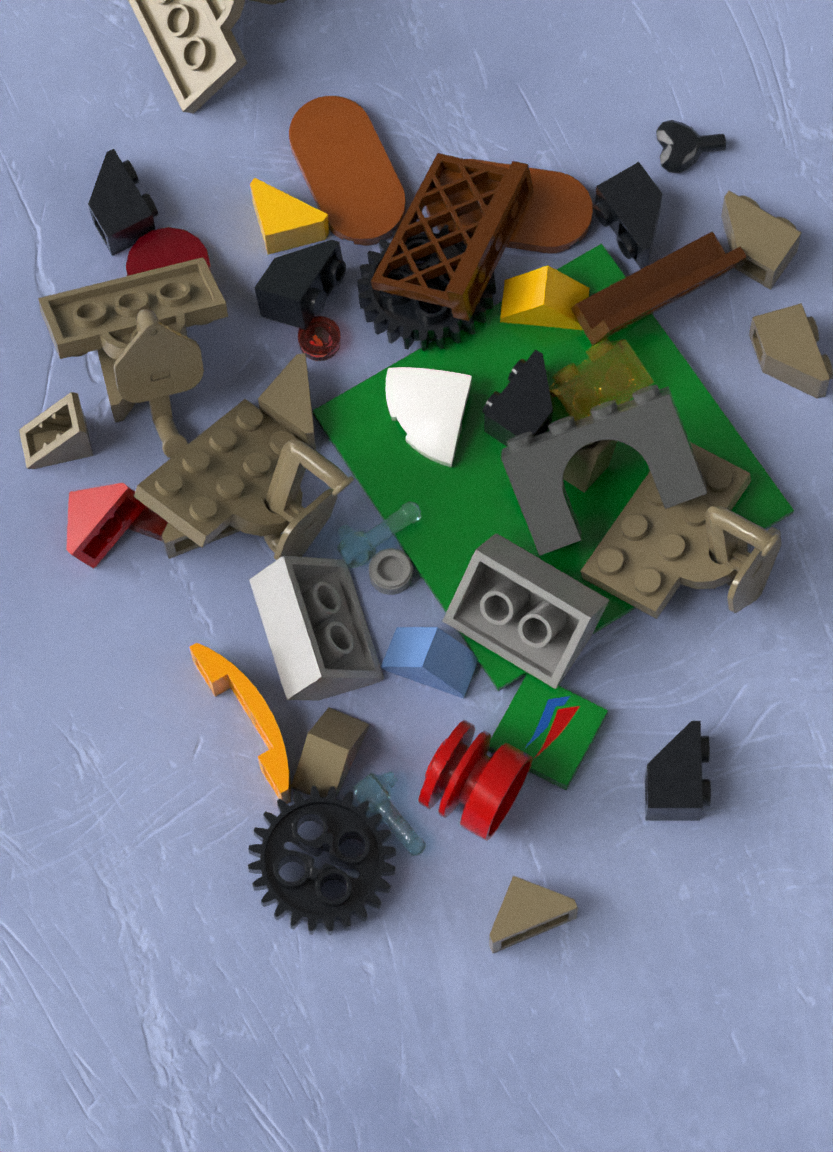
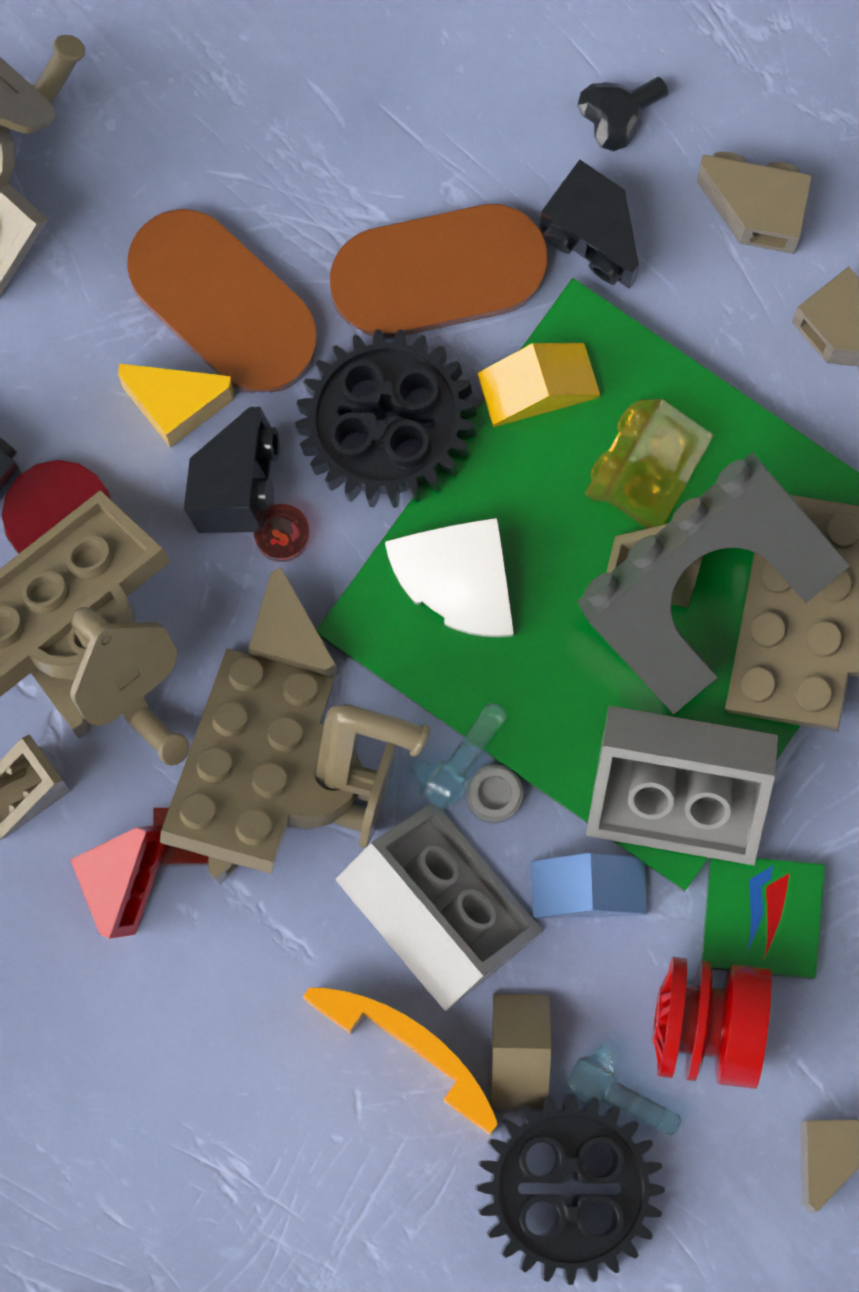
camera: 25 degrees left, 10 degrees up
(483, 249) = (441, 347): reddish brown fence -> none
(523, 404) = (575, 531): black slope -> none
(654, 287) = (666, 313): reddish brown fence -> none

